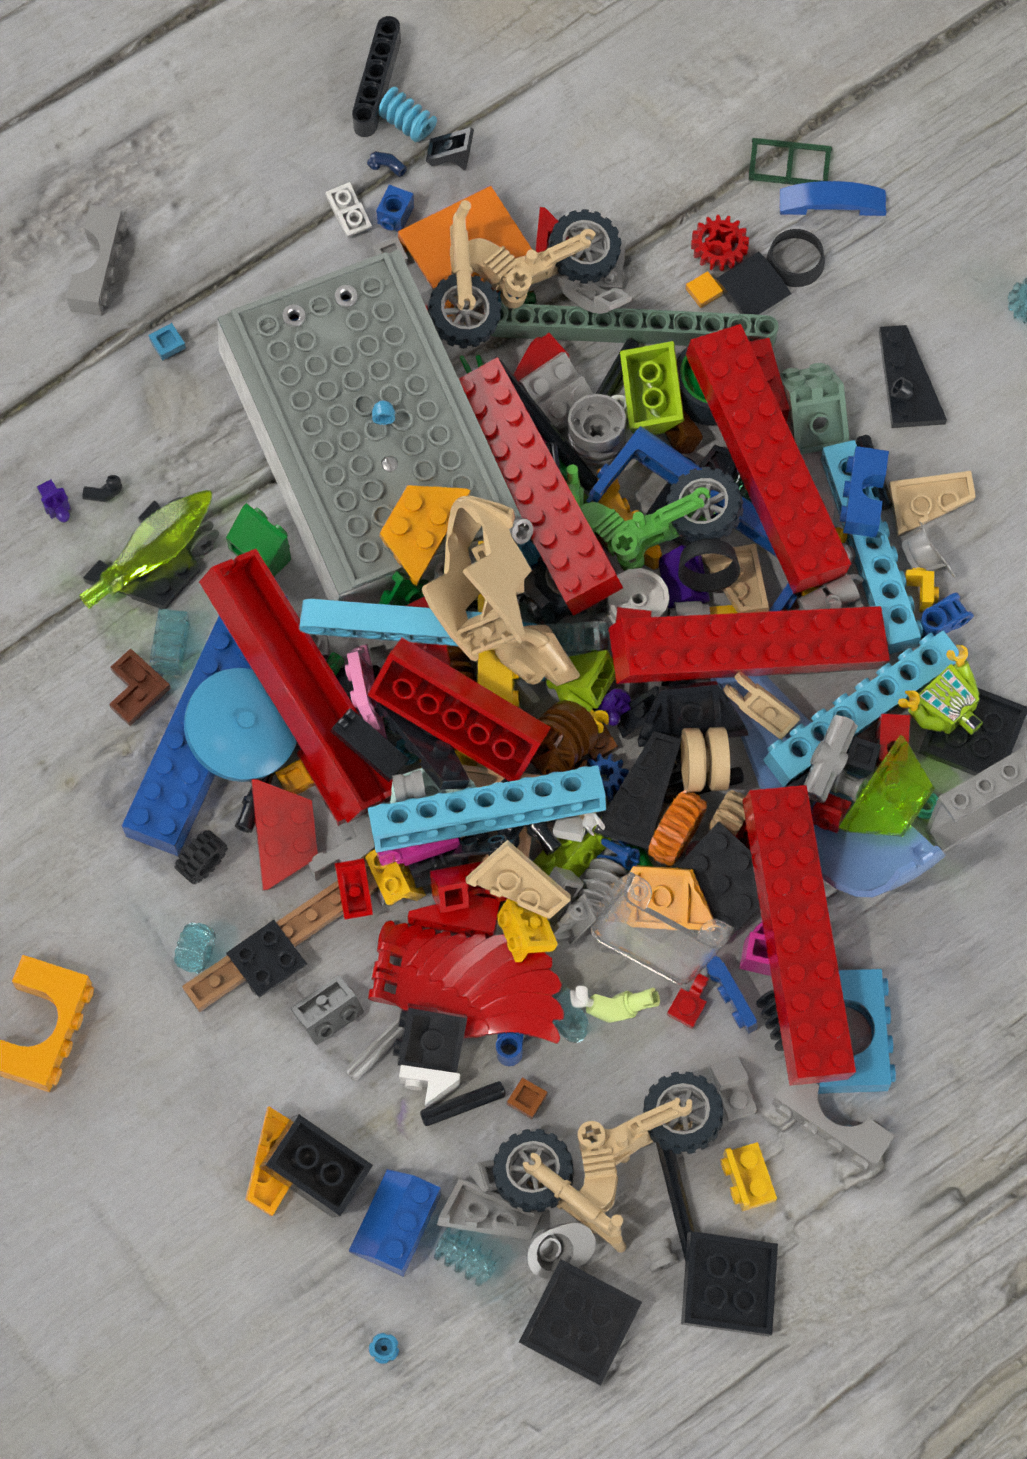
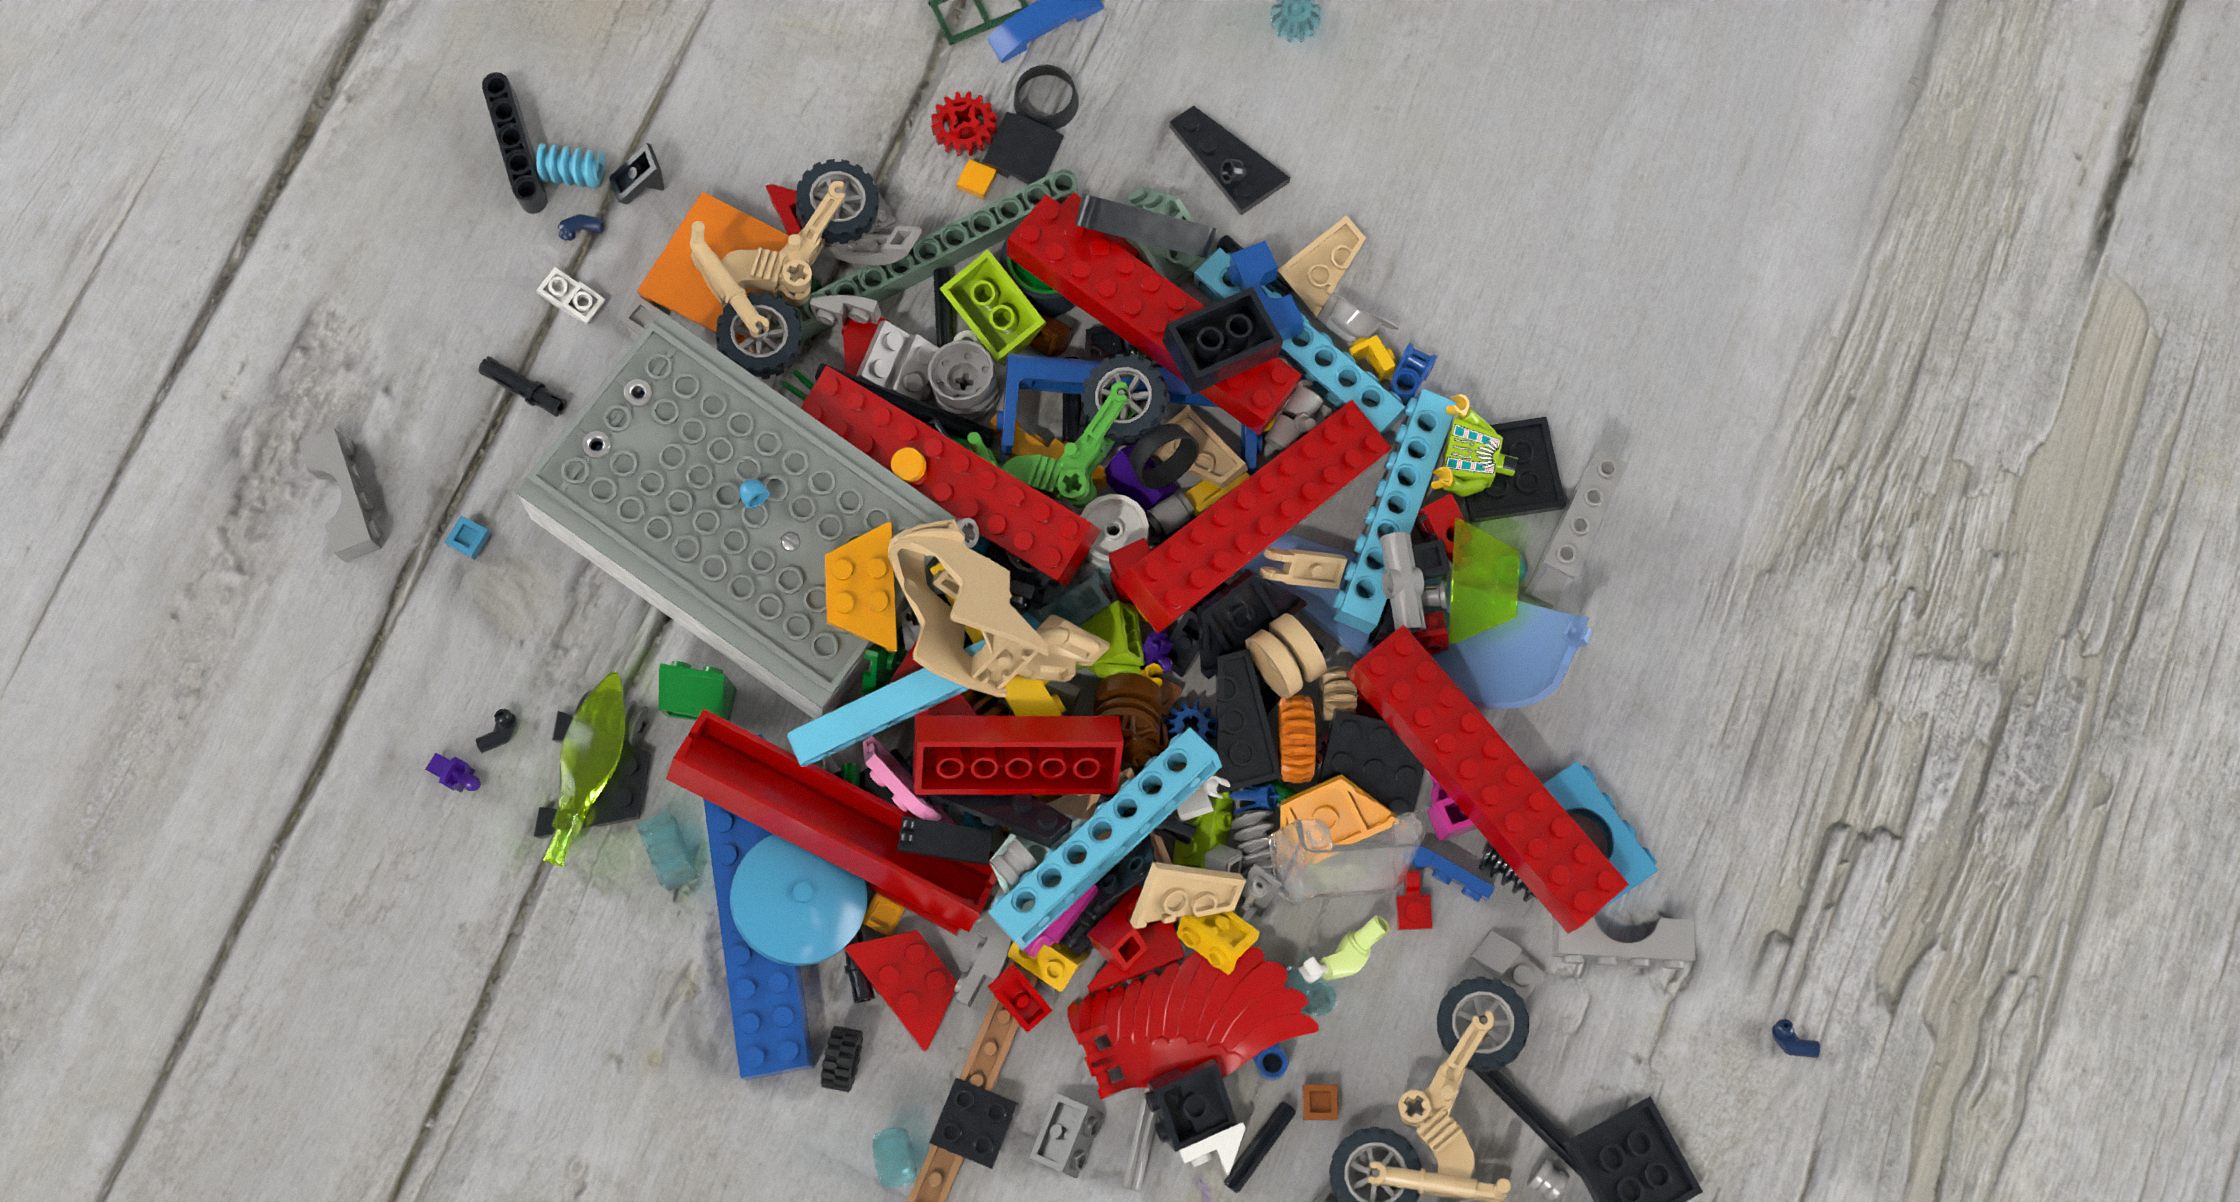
camera: 30 degrees left, 5 degrees up
(143, 688) = (670, 916): copper plate -> none
(277, 263) = (533, 392): none -> black pin
(395, 199) = (616, 257): blue brick -> none
(510, 459) = (908, 464): none -> light orange tile
(536, 324) = (837, 307): none -> light grey slope
(749, 1176) = (1579, 1045): yellow bracket -> none
(801, 501) = (1222, 340): none -> black brick
(802, 389) = (1145, 226): none -> black beam
(913, 1273) = (1791, 1044): none -> dark blue arm

